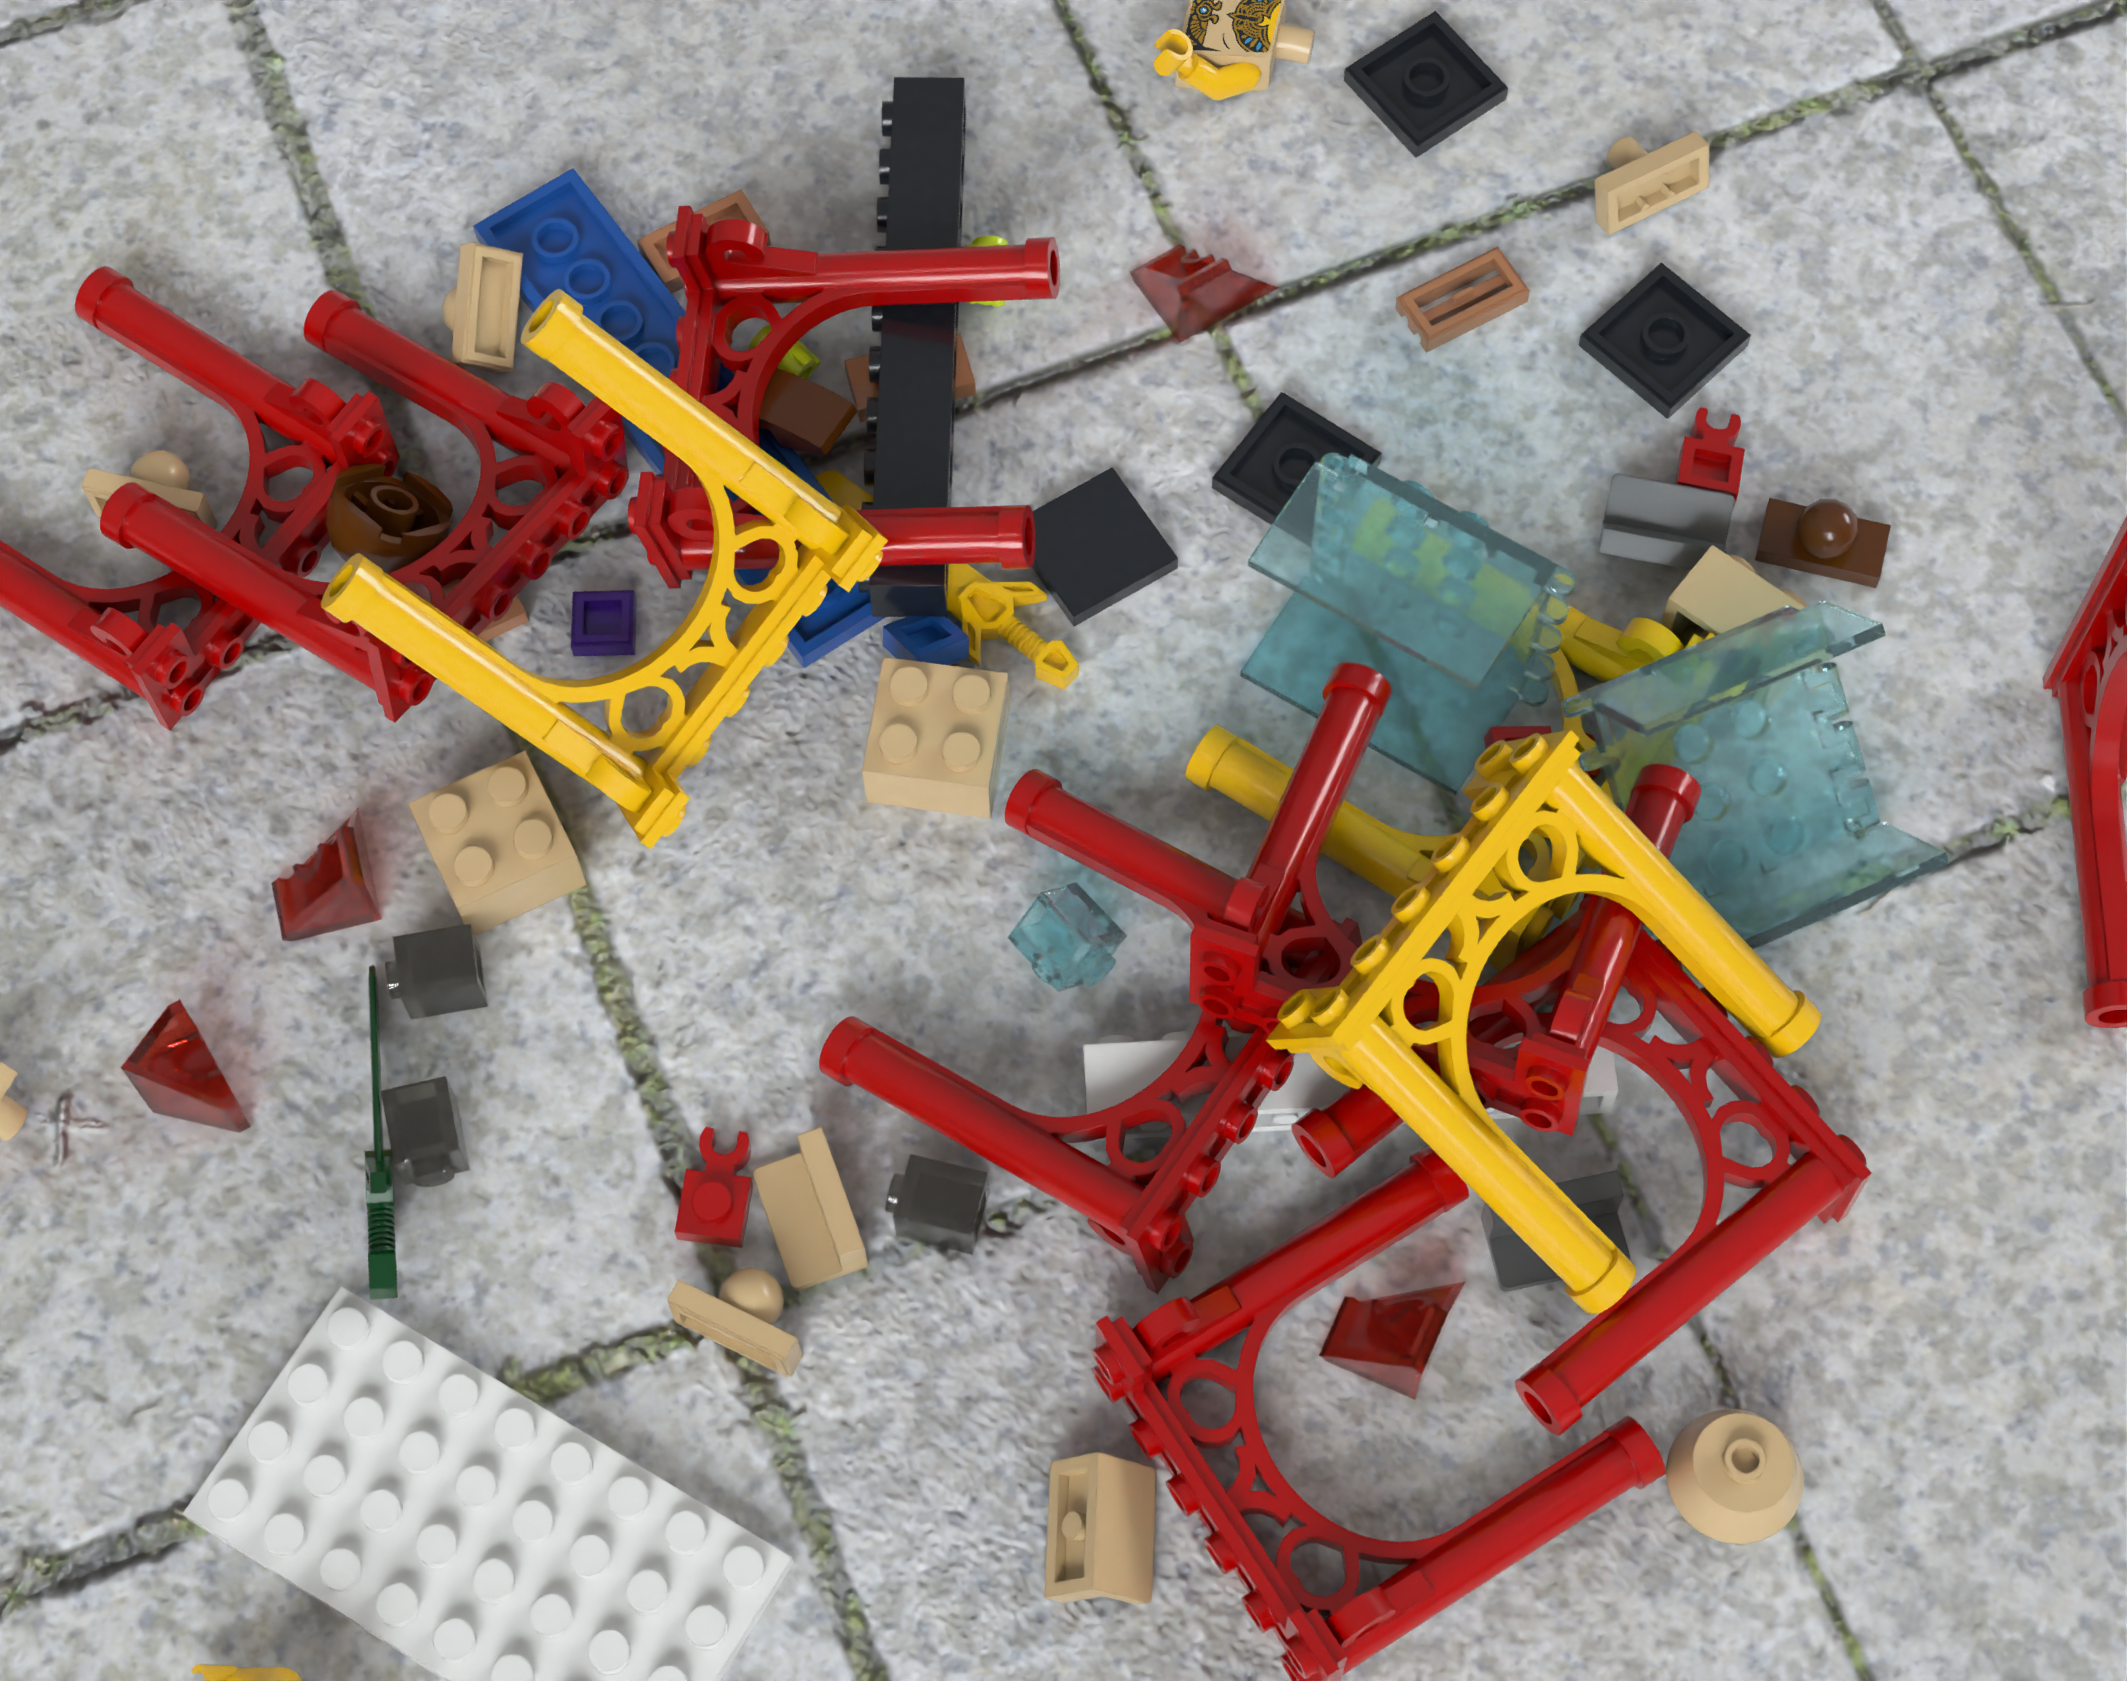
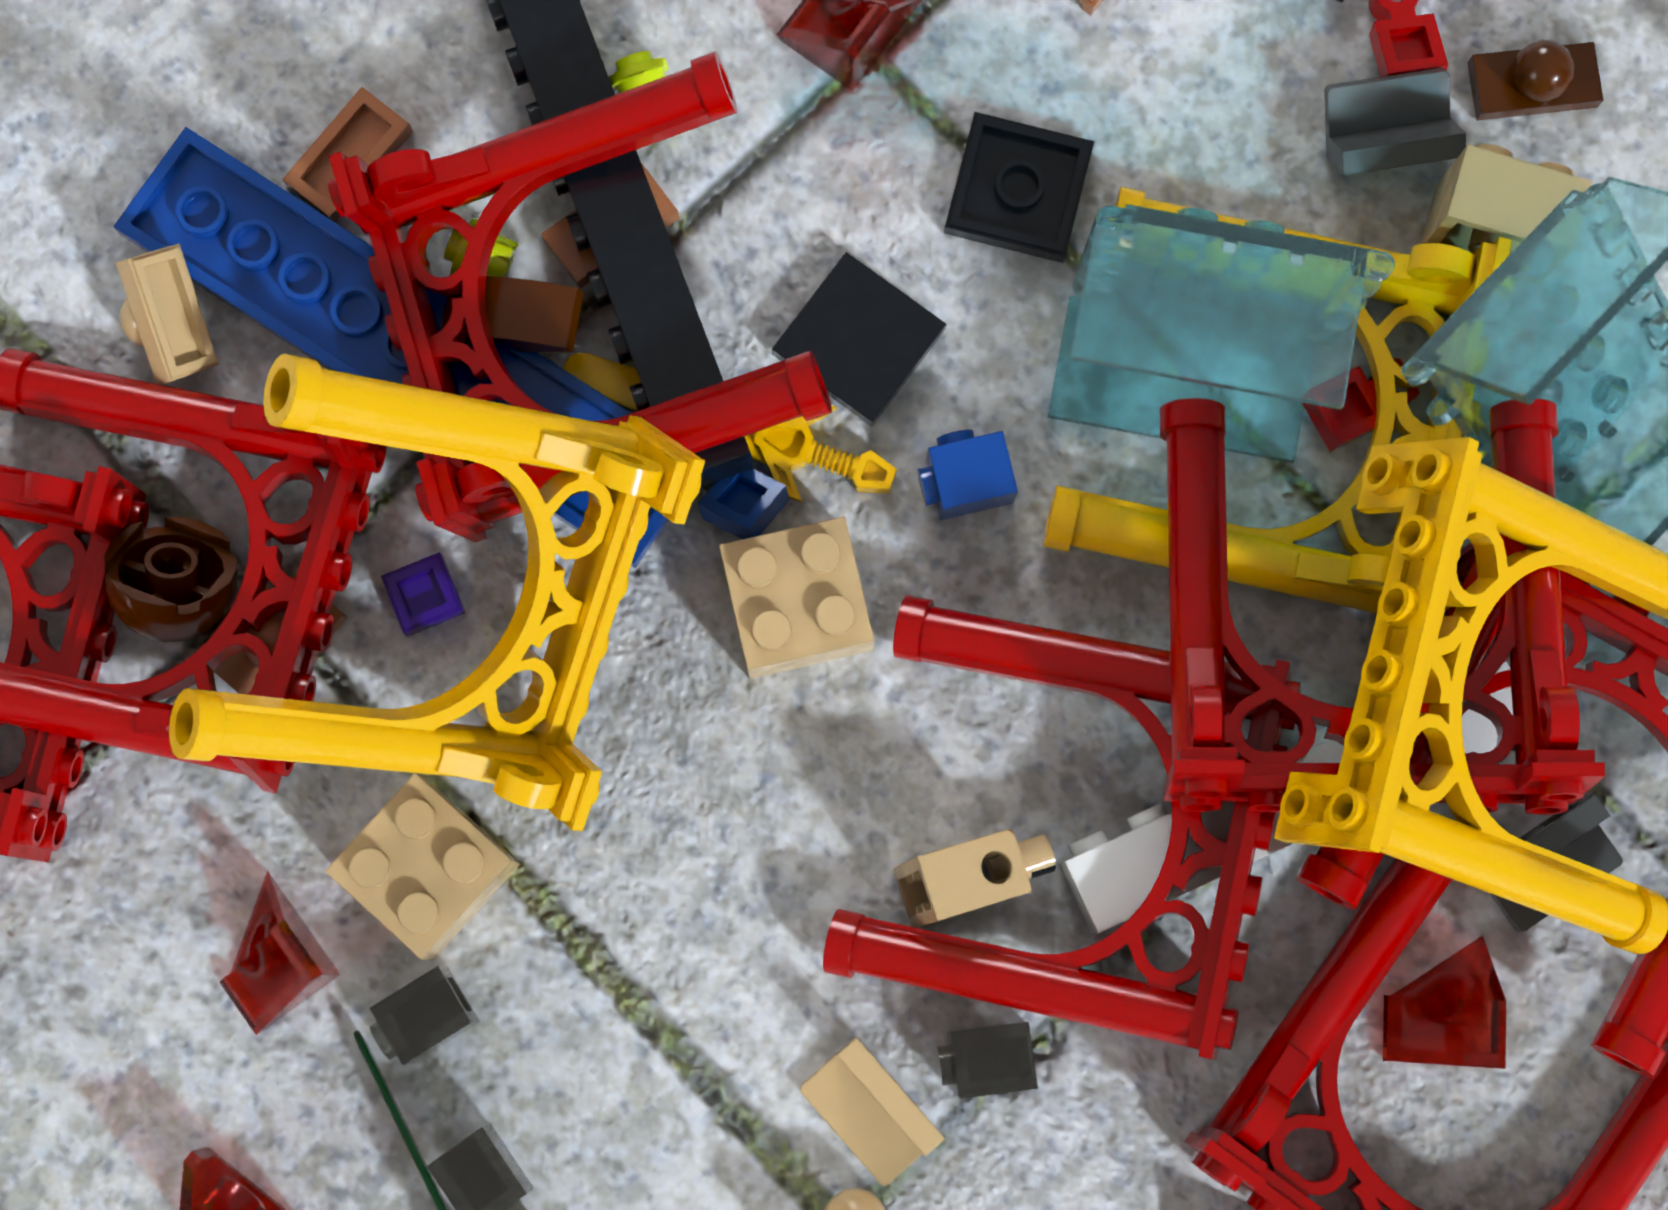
camera: 25 degrees left, 15 degrees up
(716, 1200) = (779, 1132): red plate -> none
(992, 1028) = (952, 879): none -> tan torso
(1067, 938) = (1005, 756): clear light blue brick -> none
(1141, 690) = (968, 474): none -> blue brick

